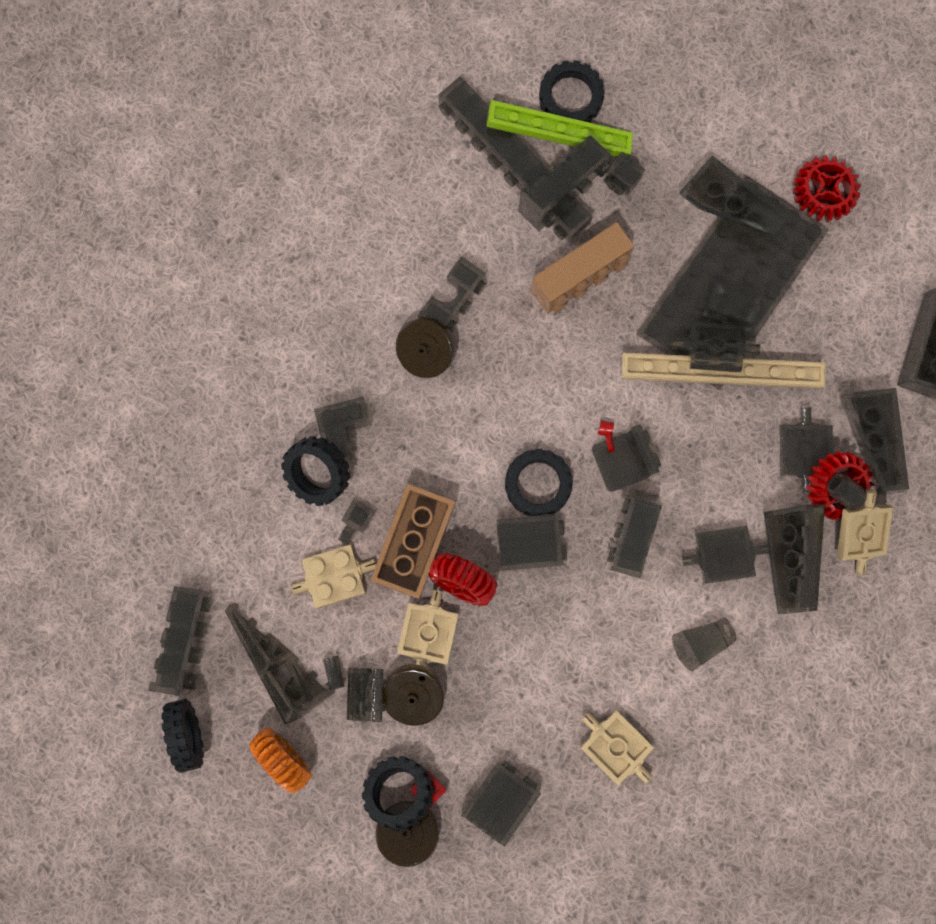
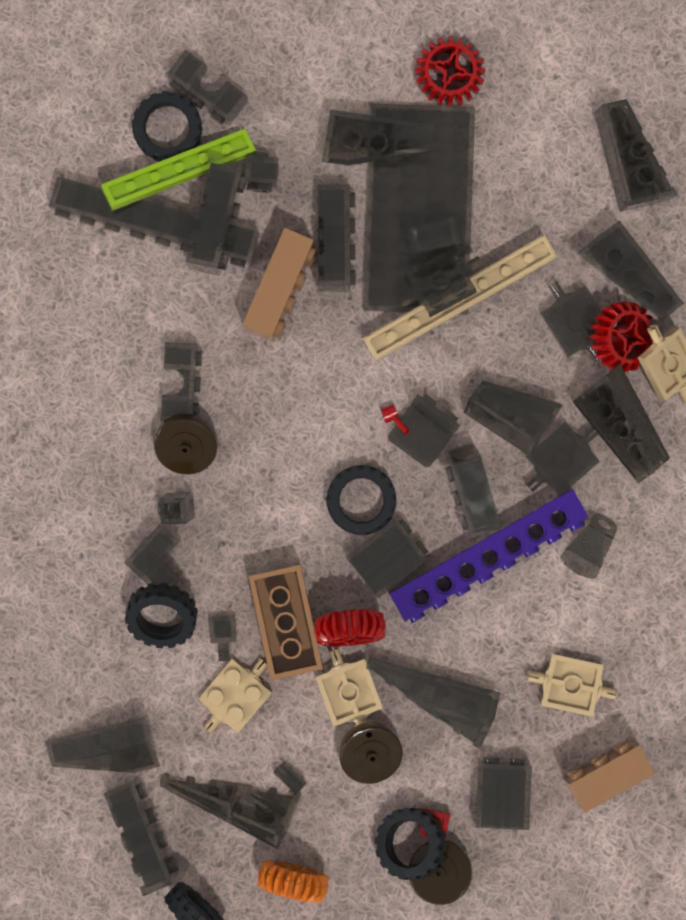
camera: 30 degrees left, 5 degrees up
(208, 555) = (113, 747): none -> clear smoke wedge
(360, 692) = (324, 782): clear smoke plate -> none
(384, 393) = (176, 508): none -> clear smoke brick
(513, 704) = (460, 705): none -> clear smoke wedge
(601, 844) = (608, 775): none -> medium nougat brick
(628, 103) = (224, 103): none -> clear smoke arch
(649, 261) = (334, 238): none -> clear smoke wedge
(706, 593) = (566, 503): none -> dark purple brick
(707, 491) = (512, 414): none -> clear smoke wedge
(846, 491) = (631, 342): clear smoke brick -> none

